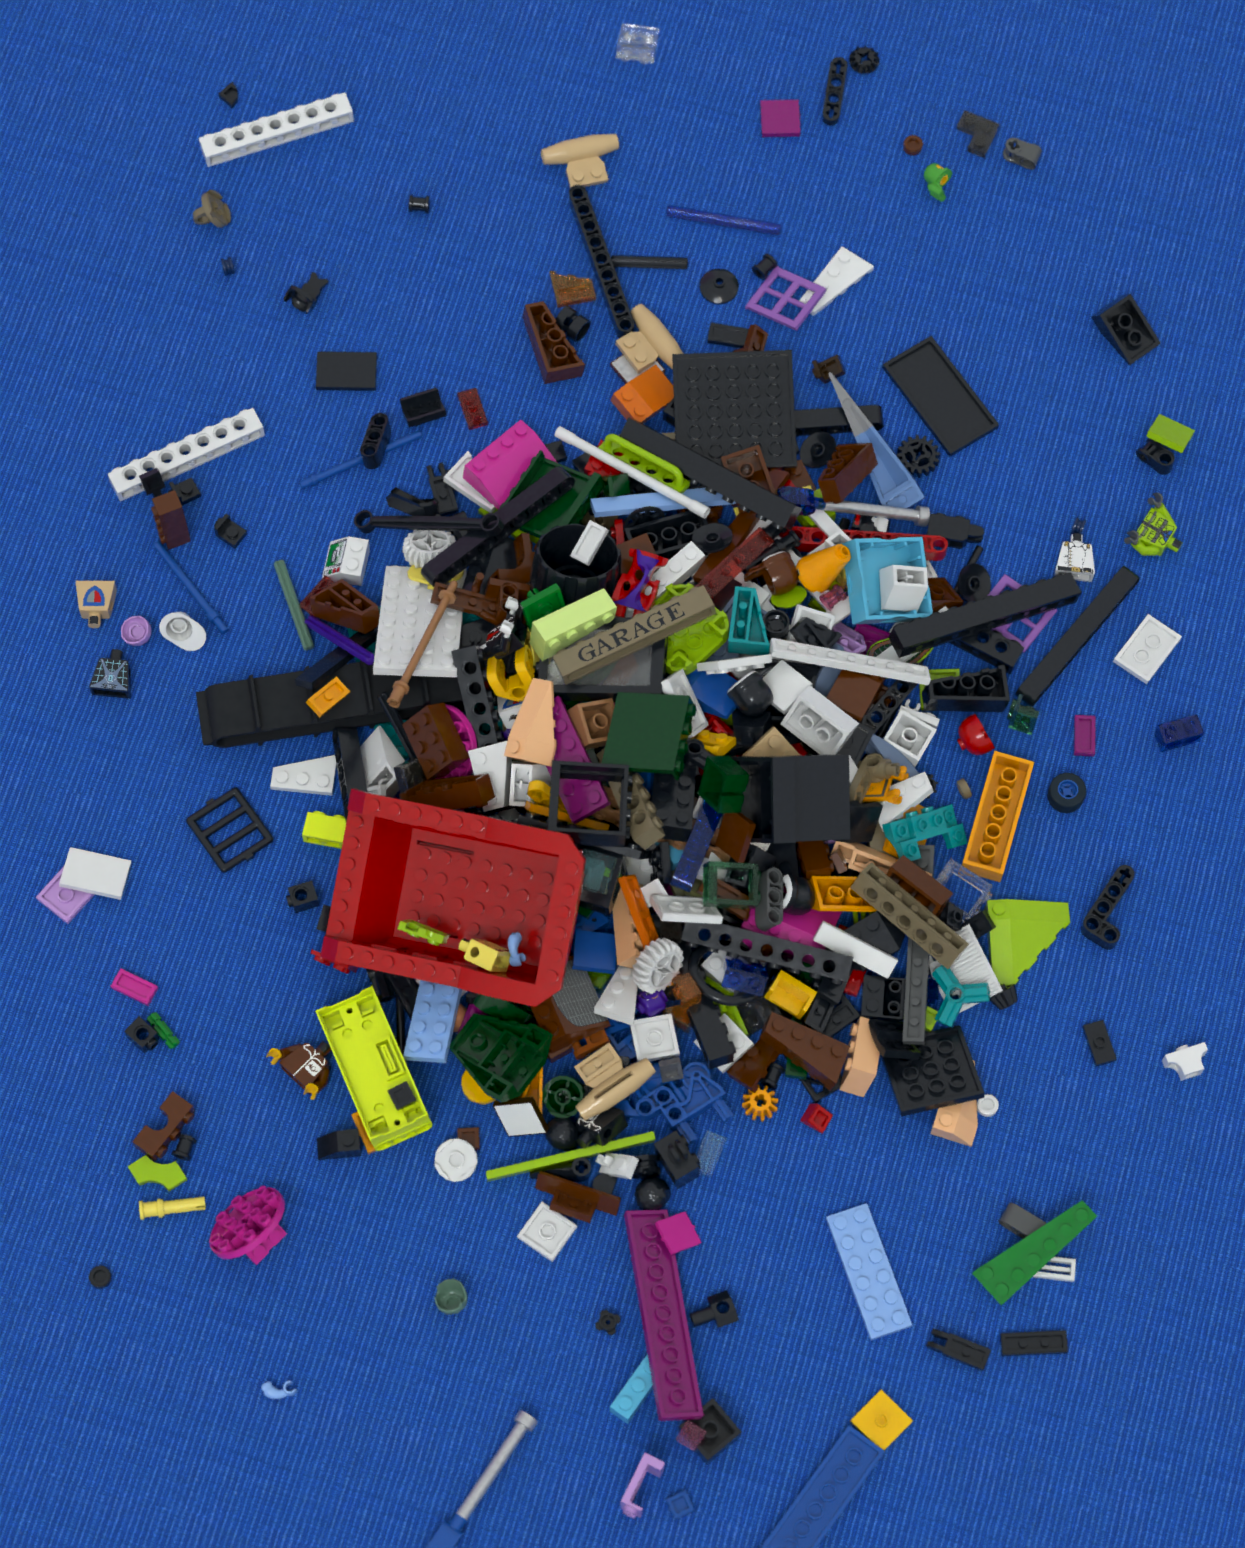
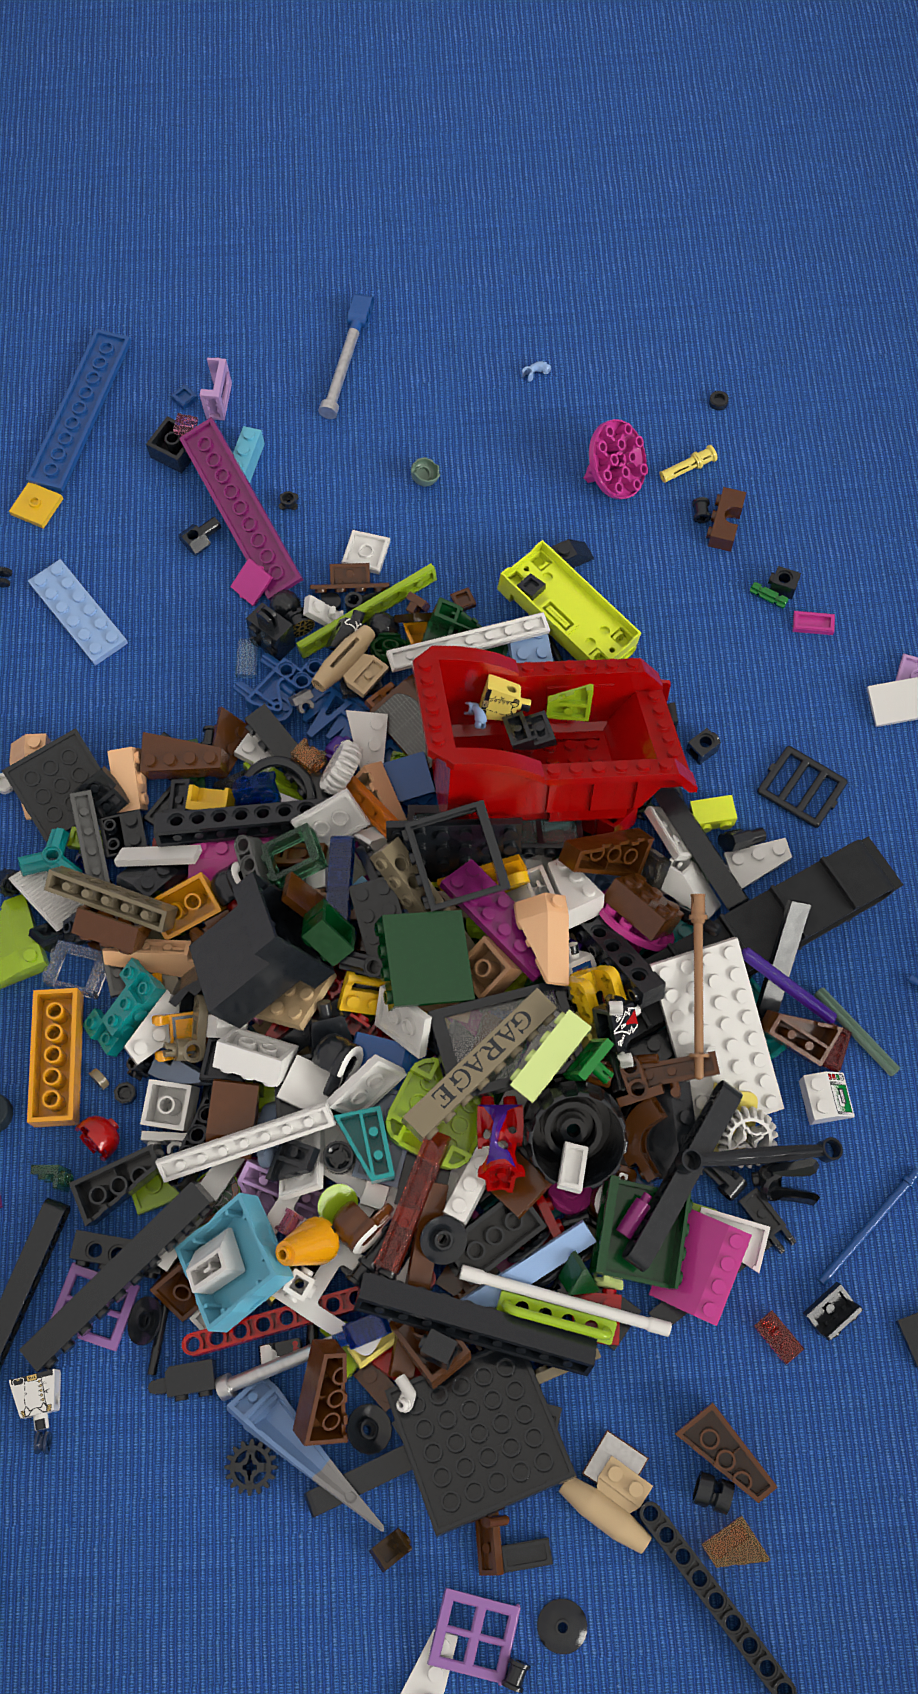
camera: 165 degrees right, 0 degrees up
(167, 1175) = (711, 487): lime tile -> none
(304, 1065) = (633, 602): reddish brown torso -> none
(317, 795) = (741, 839): none -> black piece
(327, 697) = (770, 909): light orange plate -> none
(375, 441) = (871, 1256): black beam -> none
(456, 1160) = (466, 577): white tile -> none
(472, 916) = (529, 731): none -> black slope
(489, 1046) = (479, 638): none -> white tile
(517, 1146) = (416, 604): none -> reddish brown tile
(551, 508) = (634, 1216): none -> magenta cylinder
(644, 395) = (591, 1424): orange slope -> none
(649, 262) = (658, 1626): black axle -> none
(654, 1038) = (325, 721): white plate -> none
(744, 461) = (438, 1349): none -> black brick
(765, 1109) = (206, 708): light orange gear -> none
(780, 452) = (407, 1395): none -> white arm
(816, 1117) = (160, 720): red slope -> none
(940, 396) = (248, 1567): black tile -> none
(943, 769) = (125, 1093): none -> black tile

